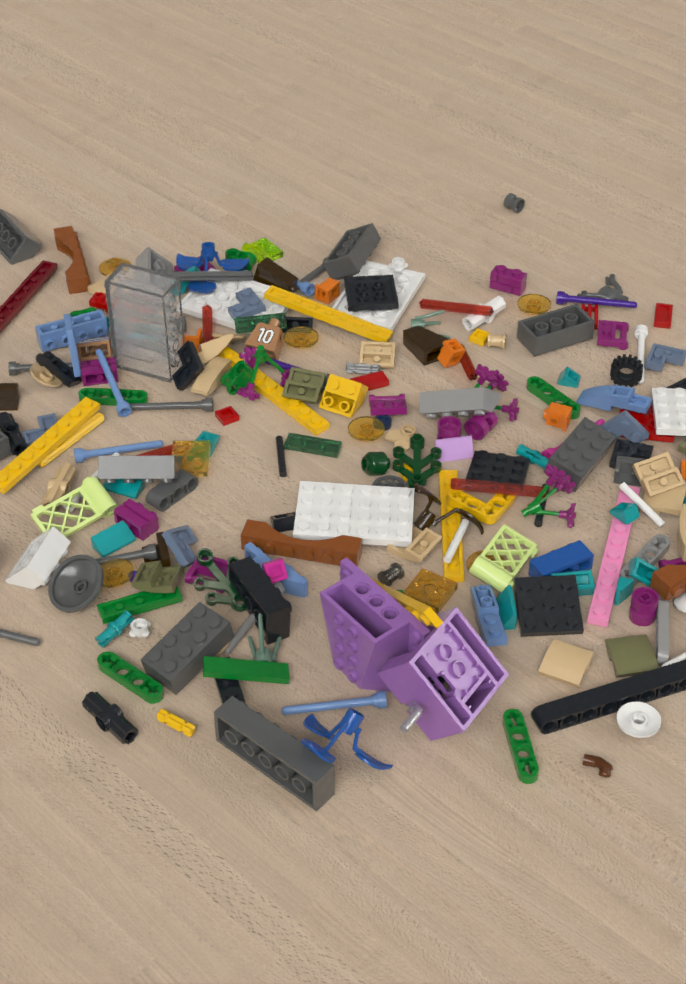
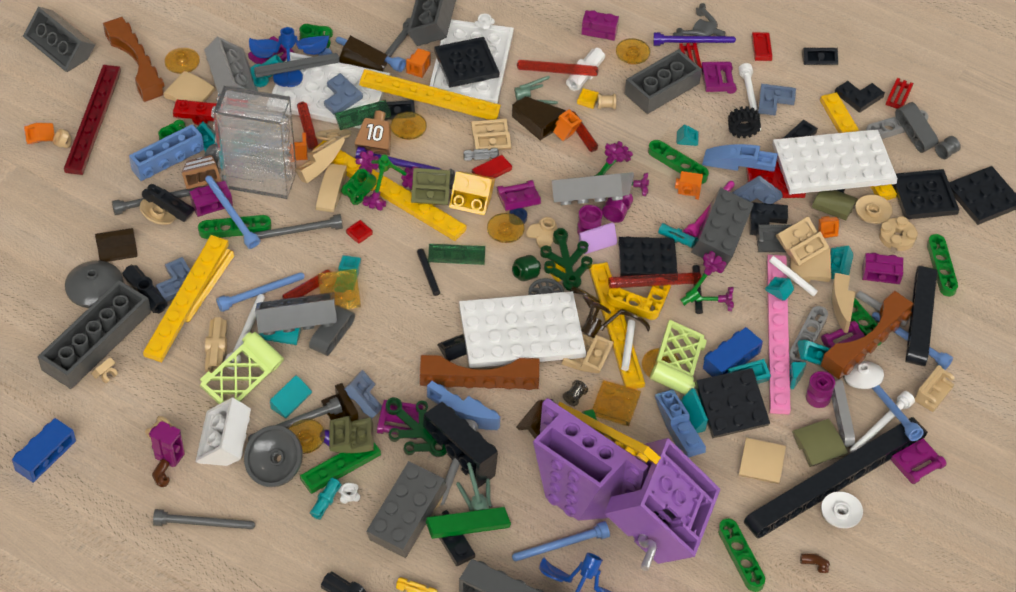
camera: 15 degrees left, 10 degrees up
(72, 345) = (181, 177): medium blue tile -> none
(127, 679) = (358, 545): green beam -> none
(138, 519) = (310, 370): magenta brick -> none
(190, 367) = (309, 183): black plate -> none
(262, 249) = (336, 15): clear neon green plate -> none
(275, 570) = (469, 411): dark pink tile -> none

